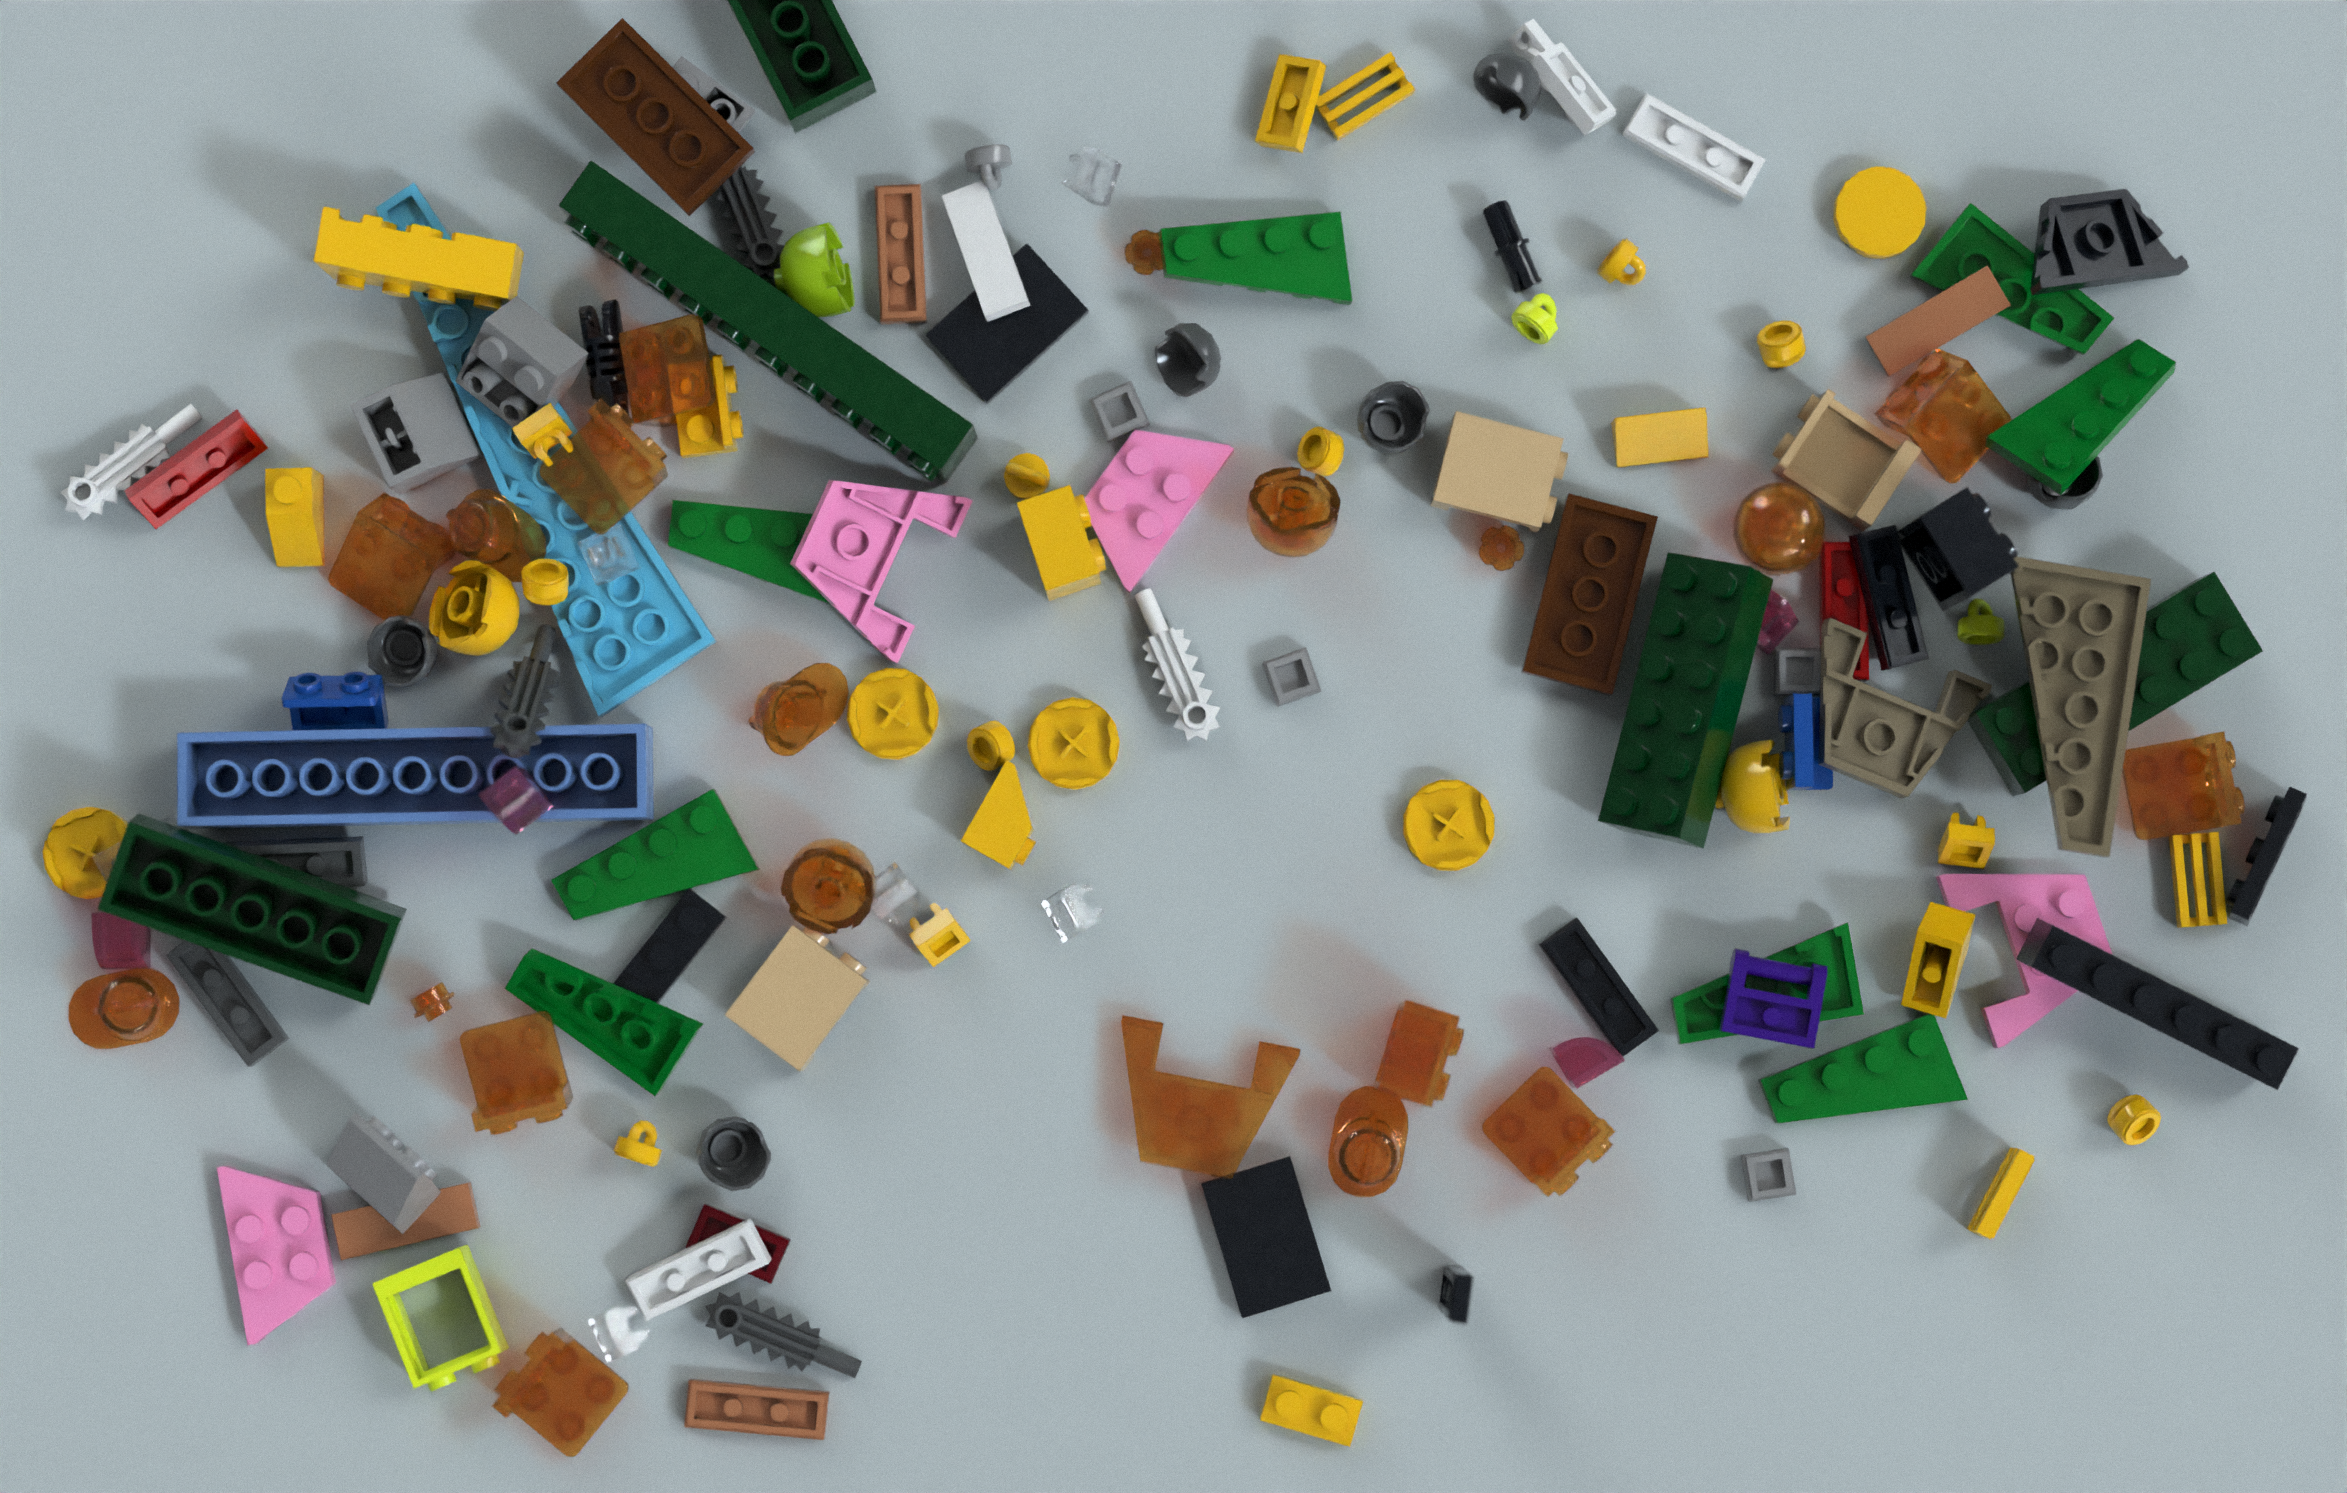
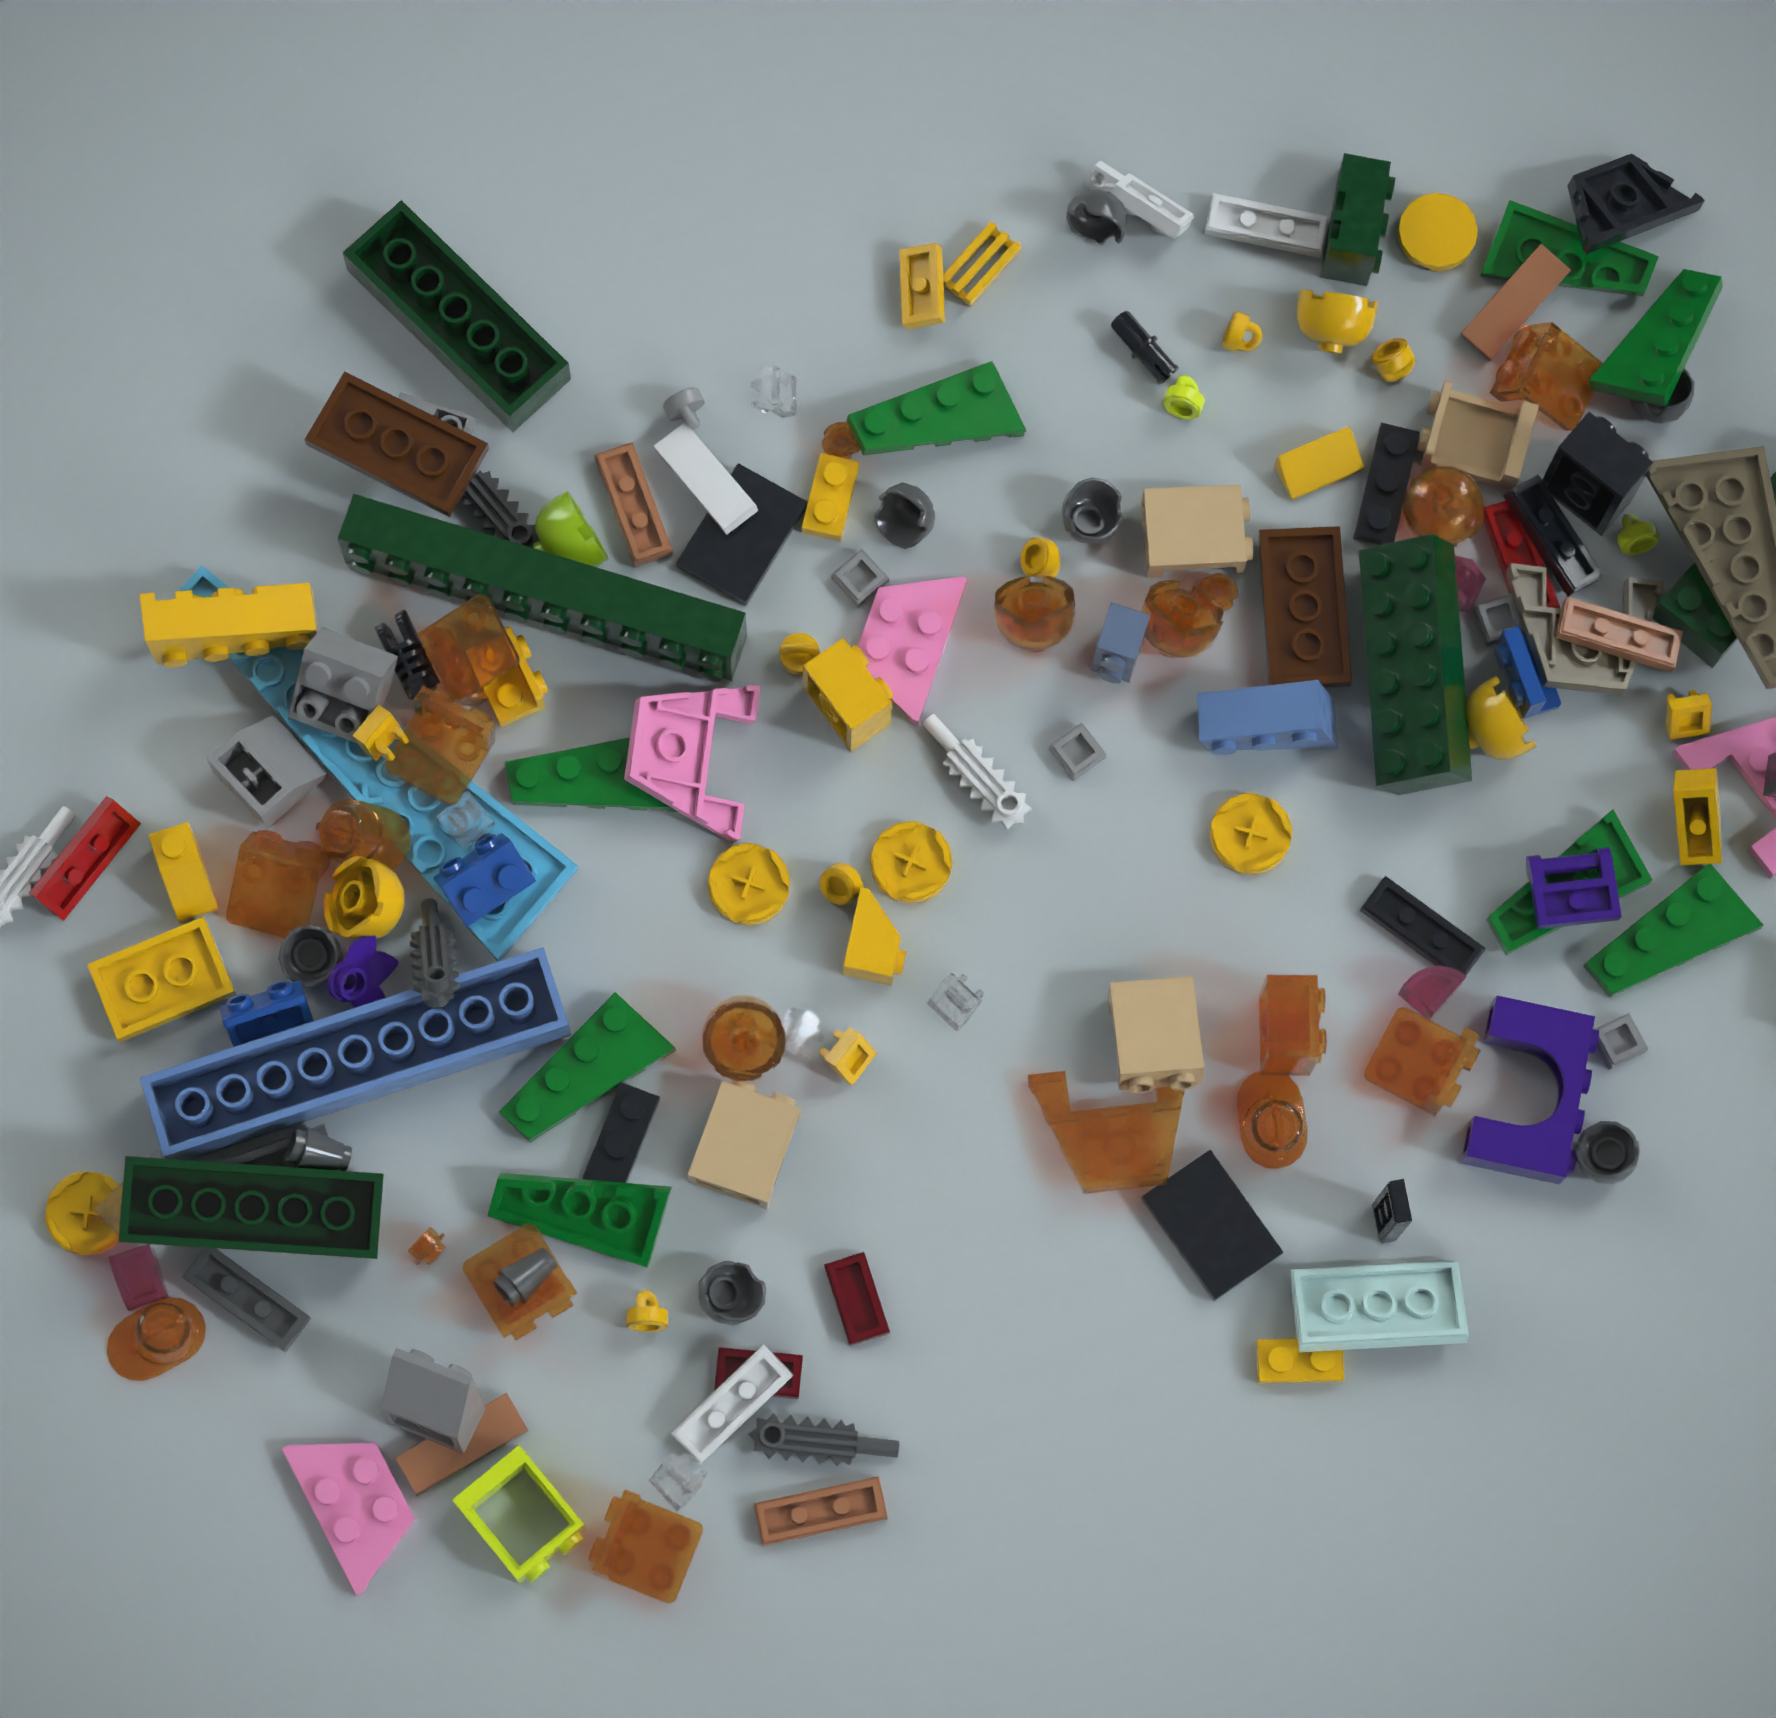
camera: 20 degrees left, 10 degrees down
(239, 626) = (161, 979): none -> yellow plate
(341, 867) = (316, 1151): none -> dark grey cone
(452, 687) = (364, 972): none -> dark purple plate
(516, 800) = (454, 1040): clear pink brick -> none
(520, 1070) = (524, 1277): none -> dark grey cone
(545, 581) = (418, 859): yellow tile -> none
(607, 625) = (484, 878): none -> blue bracket
(800, 708) = (669, 899): clear orange piece -> none
(865, 1197) = (856, 1299): none -> dark red tile
(1116, 311) = (830, 497): none -> yellow plate
(1271, 1017) = (1156, 1034): none -> tan panel
(1372, 577) = (1119, 643): none -> sand blue brick
(1412, 1381) = (1378, 1306): none -> light aqua tile
(1448, 568) = (1181, 620): none -> clear orange cylinder
(1505, 708) = (1267, 718): none -> medium blue wedge
(1707, 1164) = (1563, 1043): none -> dark purple arch
(1712, 1294) = (1607, 1152): none -> dark grey hair
(1726, 483) = (1386, 484): none -> black plate
(1730, 281) = (1335, 319): none -> yellow cylinder
(1795, 173) = (1357, 220): none -> dark green wedge
(1920, 733) = (1619, 634): none -> nougat tile

